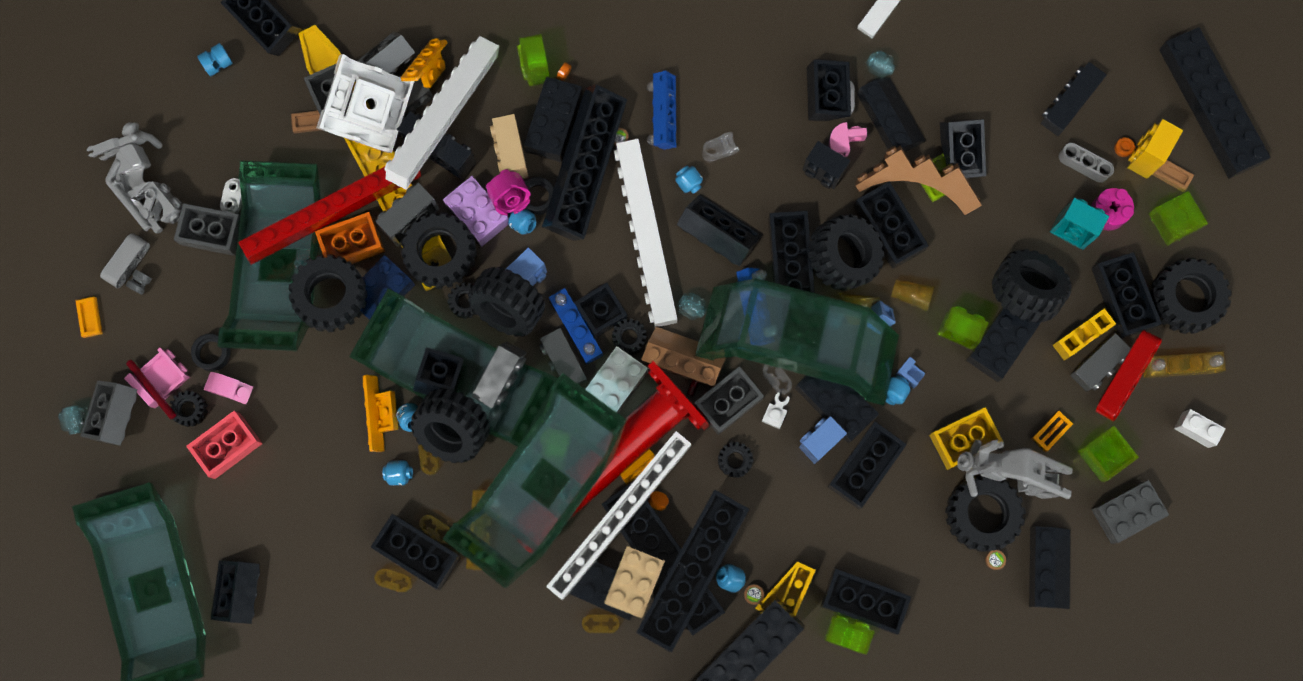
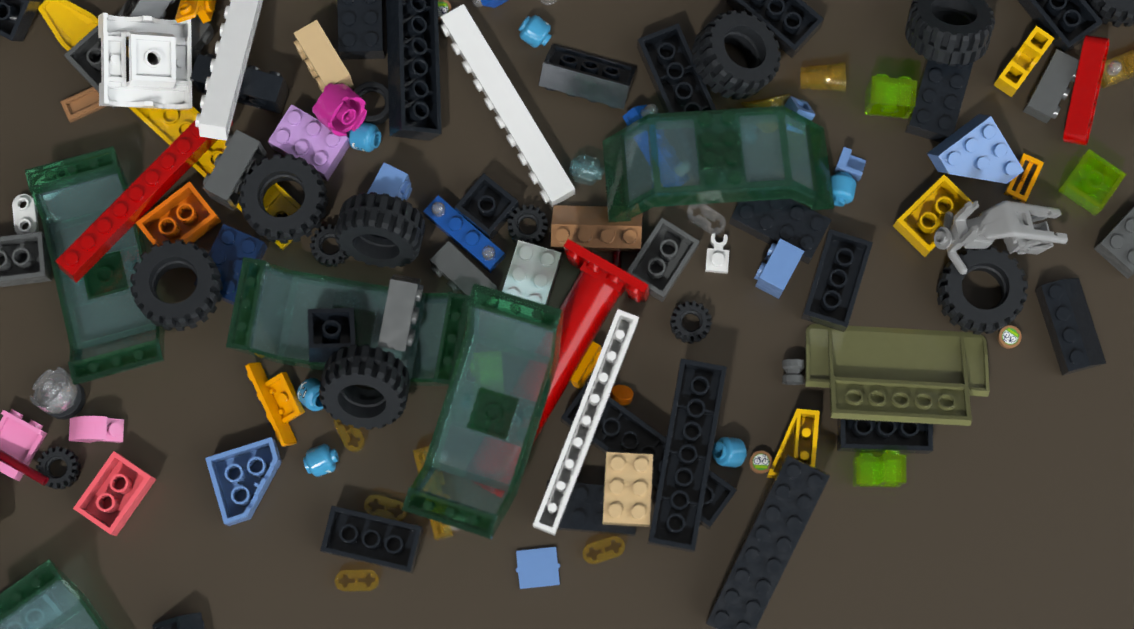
camera: 20 degrees left, 0 degrees up
(203, 347) = (54, 391): none -> clear cylinder
(329, 466) = (243, 477): none -> medium blue brick
(542, 619) = (537, 567): none -> medium blue piece
(805, 529) = (793, 370): none -> dark grey wheel
(892, 560) = (898, 373): none -> olive slope
(1019, 398) = (977, 153): none -> medium blue brick

